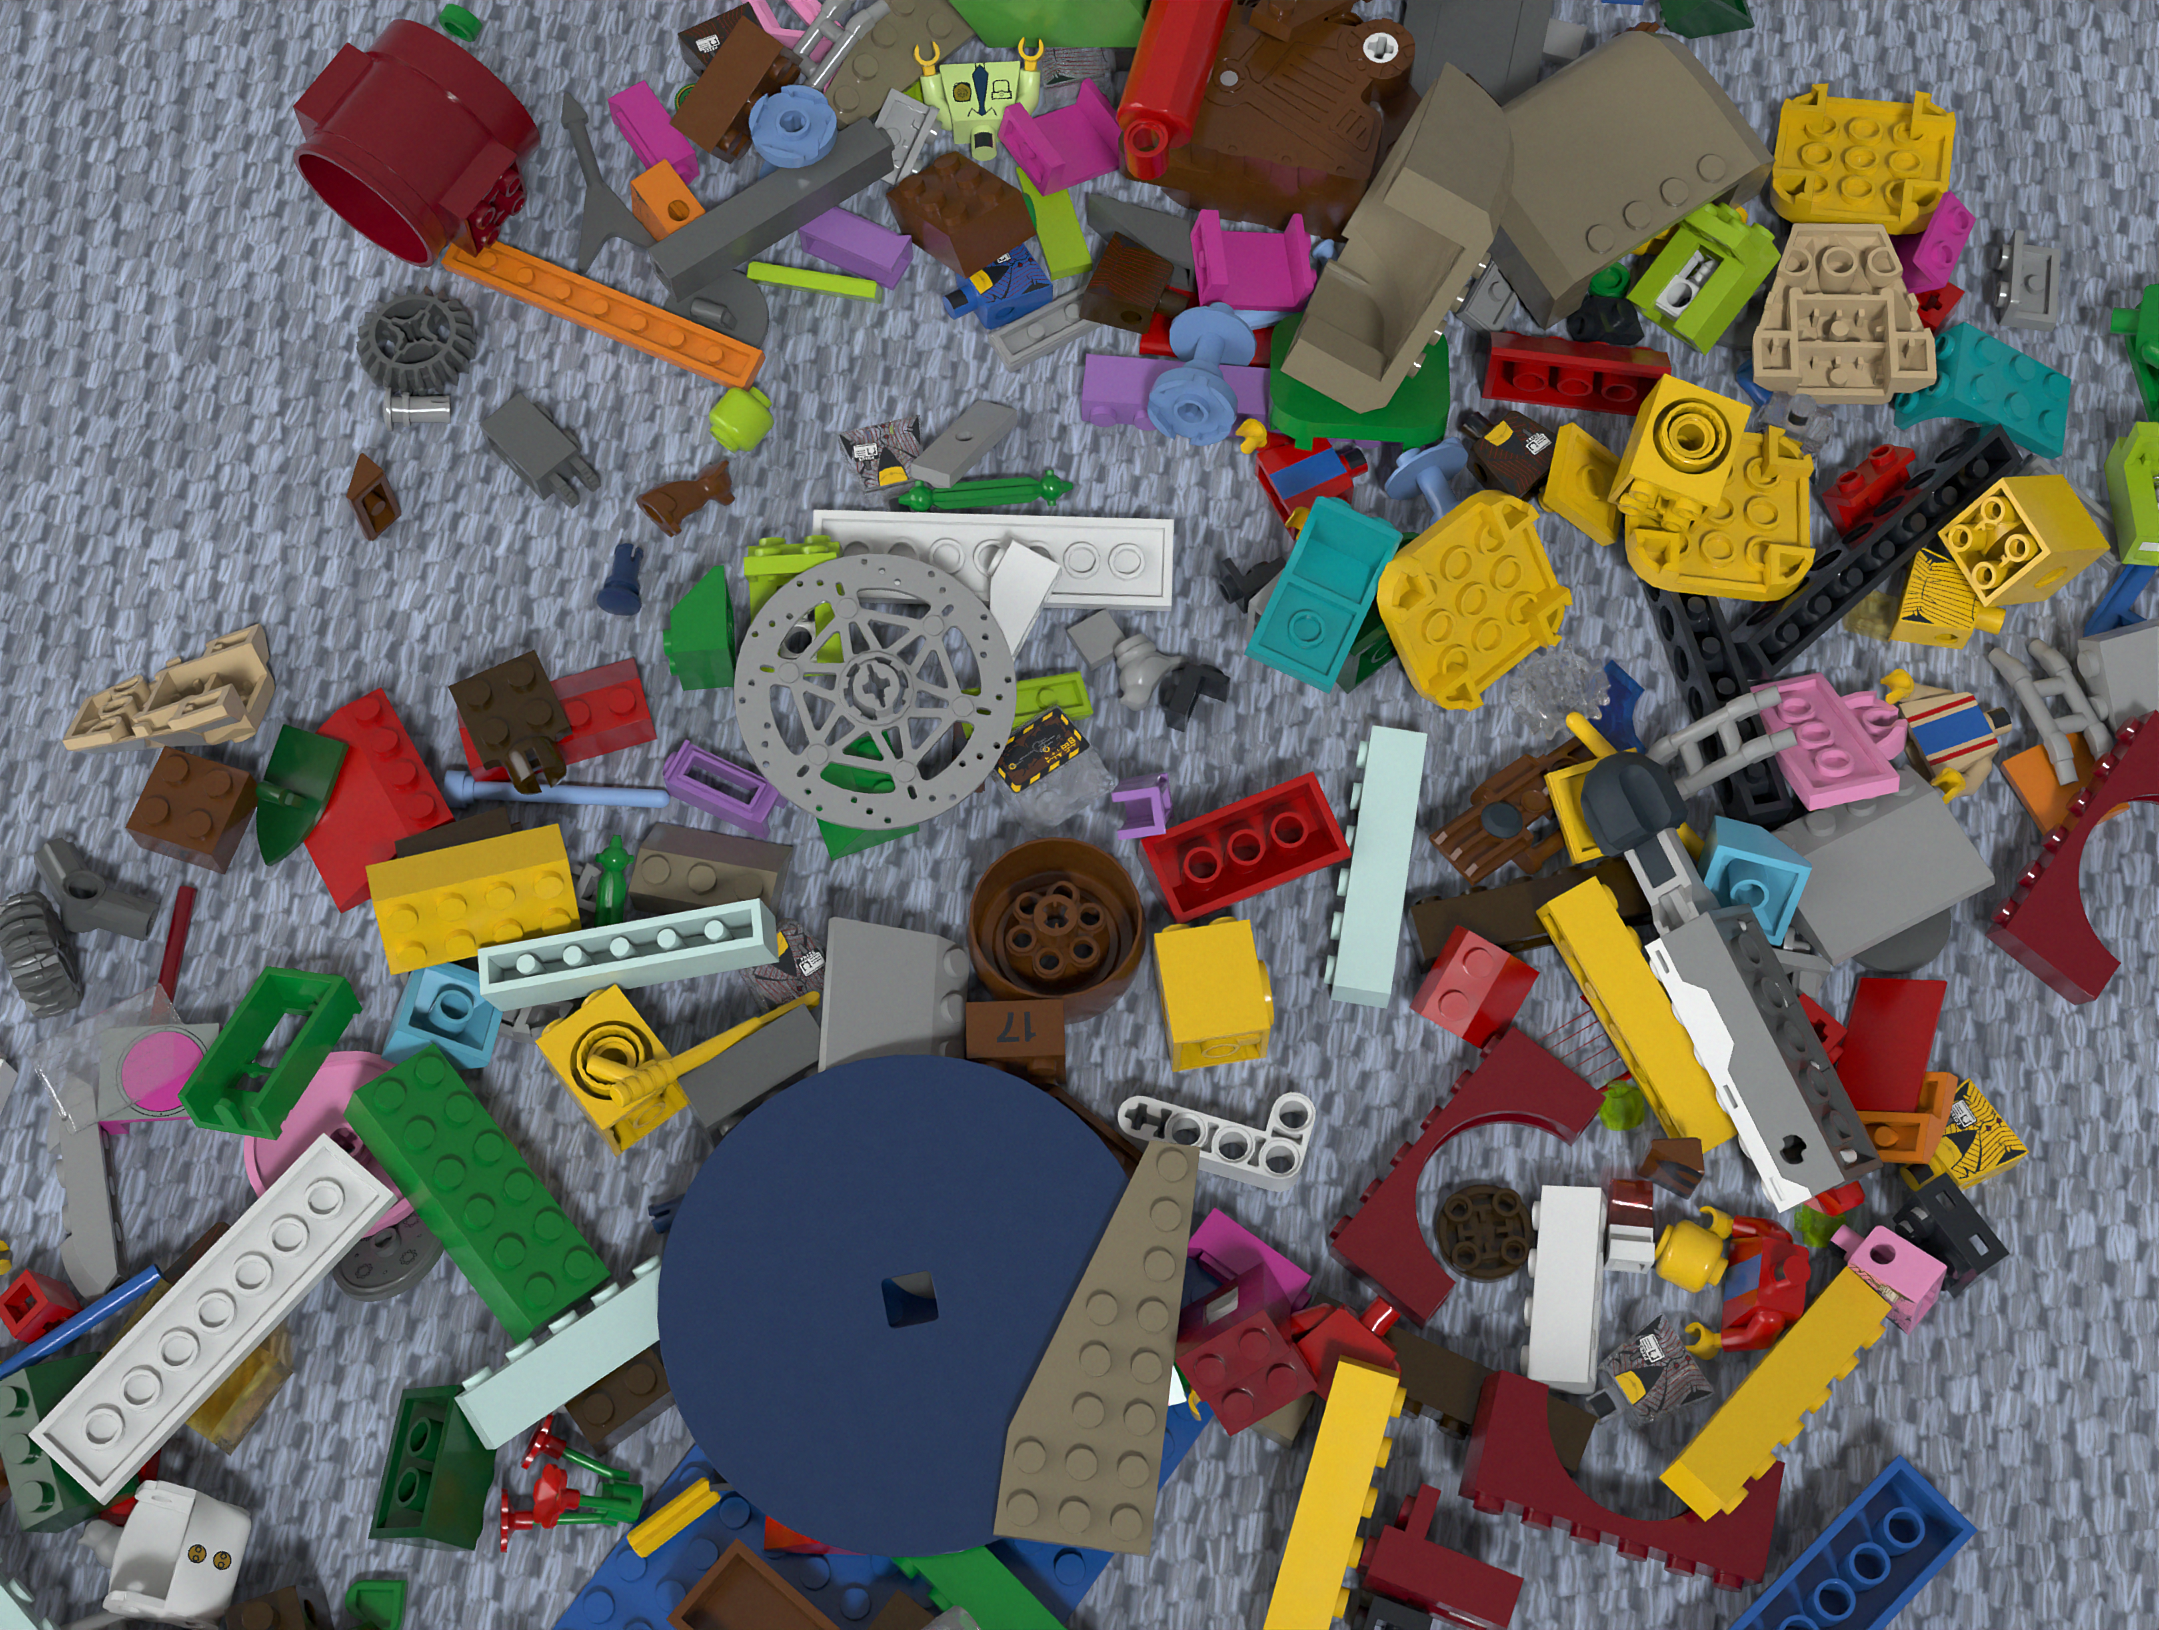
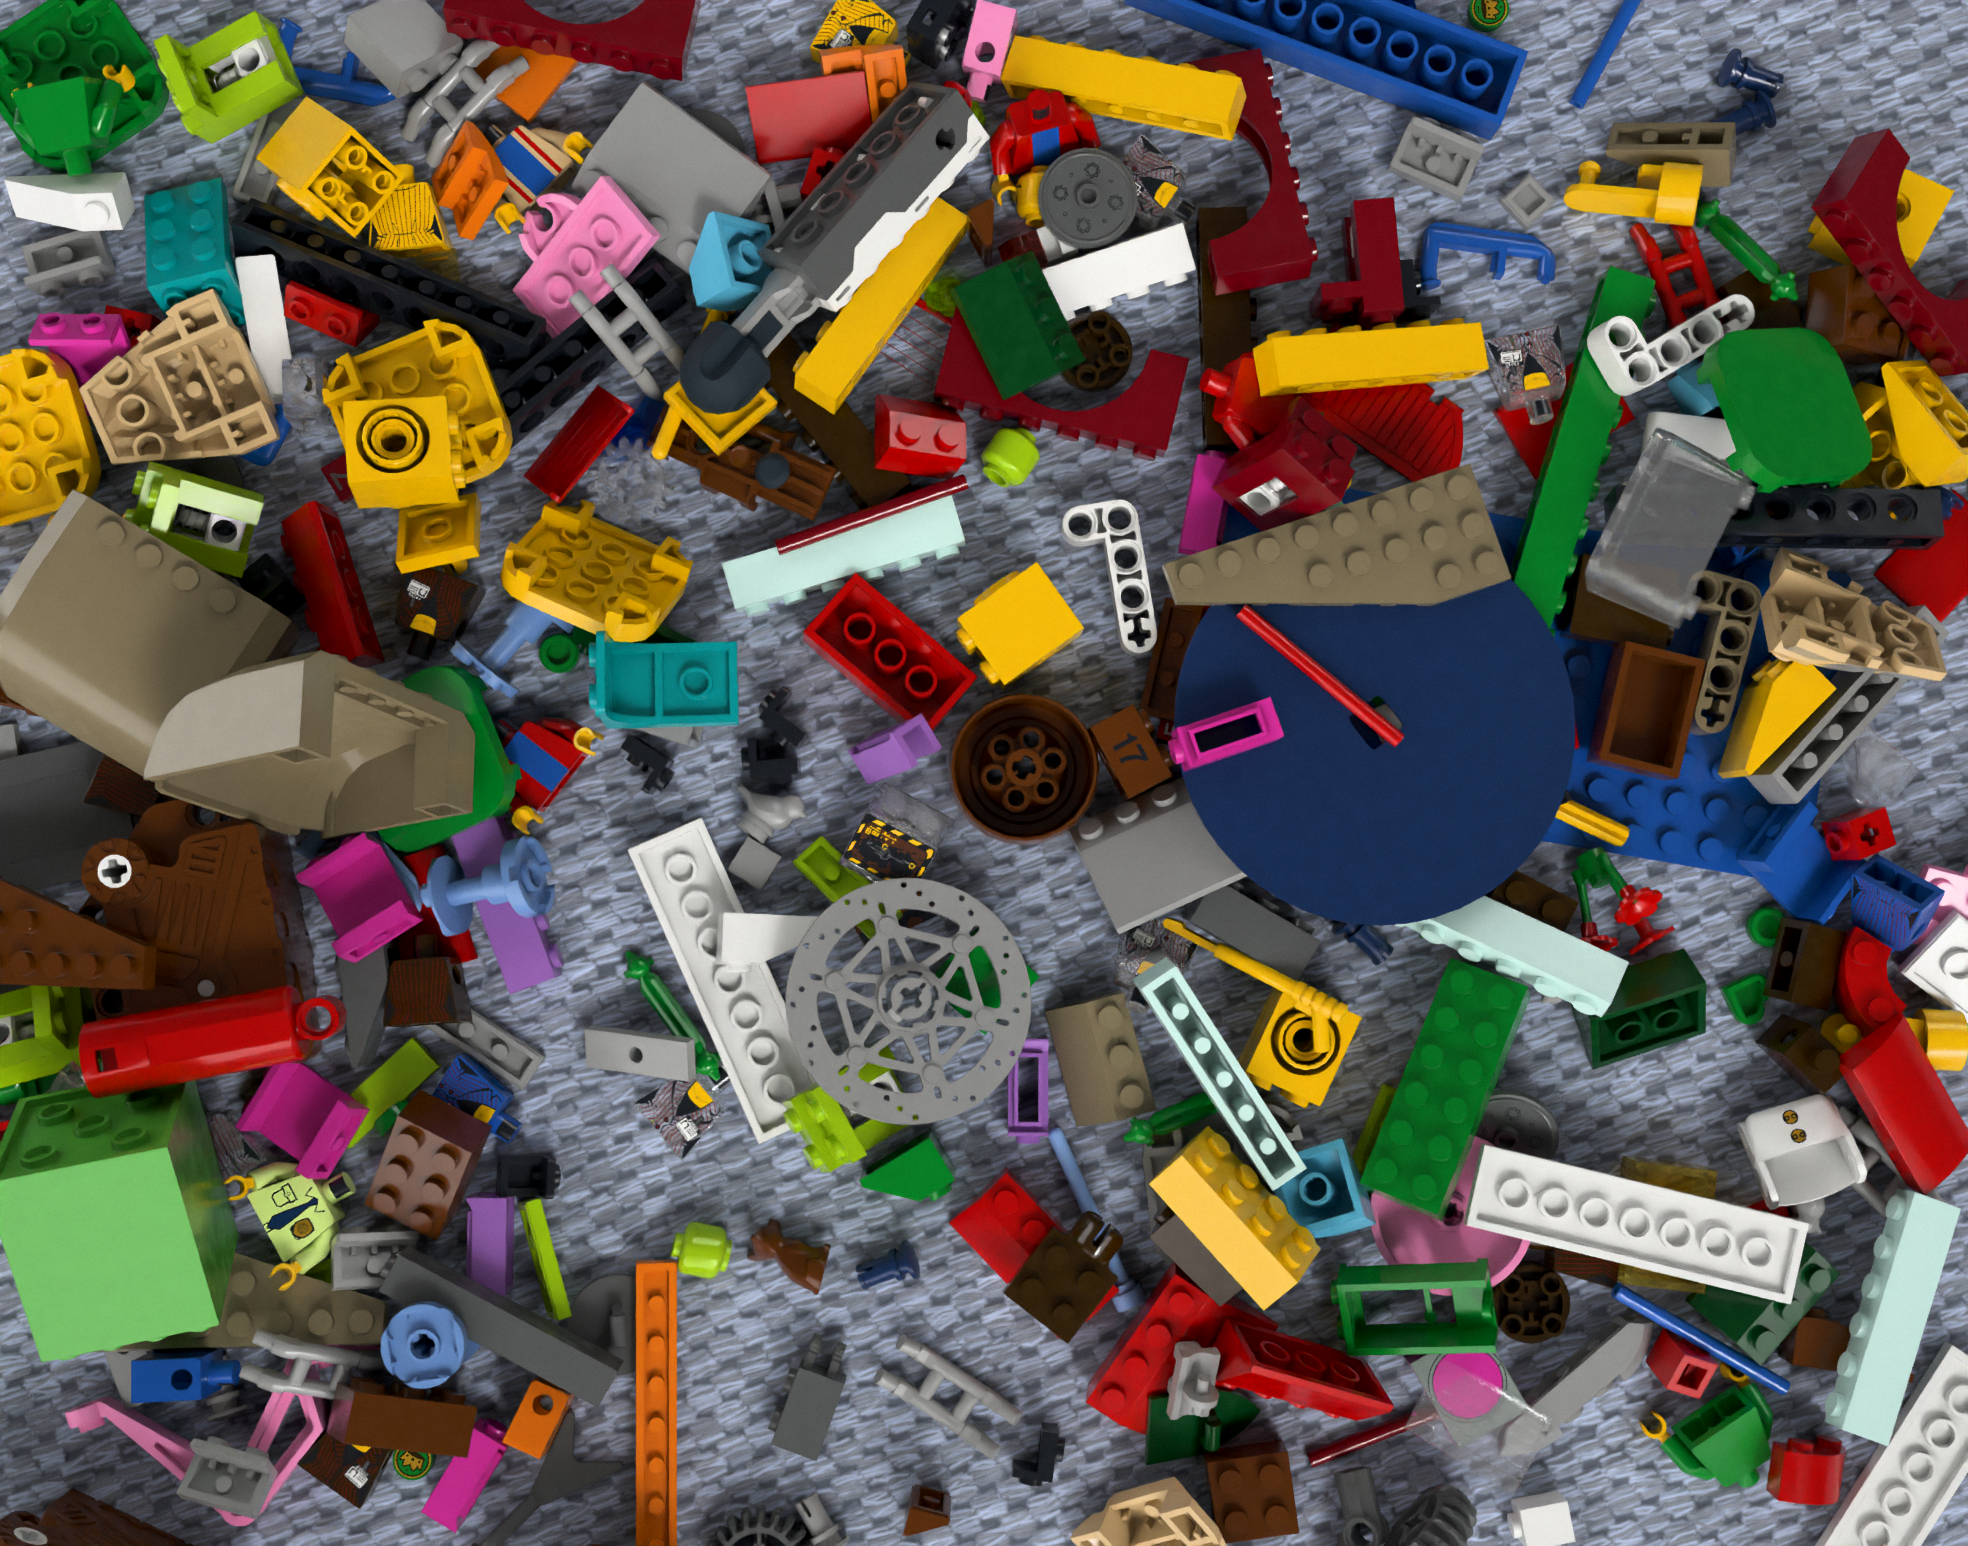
camera: 120 degrees left, 20 degrees up
(200, 1189) = (1531, 1303): none -> dark brown tile
(285, 898) = (1298, 1372): none -> red slope
(339, 783) = (1193, 1382): none -> light grey hips
(354, 641) = (1049, 1451): none -> black bracket
(477, 555) = (955, 1419): none -> light grey piece
(903, 301) = (527, 1175): none -> black bracket
(972, 1161) = (1185, 748): none -> dark pink window
(992, 1259) = (1320, 675): none -> red piece
(1227, 722) = (783, 730): none -> black bracket
(1236, 1540) = (1396, 425): none -> red piece
(1405, 1082) = (1010, 457): none -> lime head
(1407, 901) = (871, 514): none -> dark red piece
(1546, 1139) = (1017, 325): none -> dark green slope
(1621, 657) = (579, 444): none -> red piece
(1662, 1293) = (1087, 198): none -> dark grey shield
(1895, 427) = (264, 319): none -> white sticker
(1957, 673) = (469, 180): none -> orange slope
(2081, 318) = (76, 203): none -> white slope

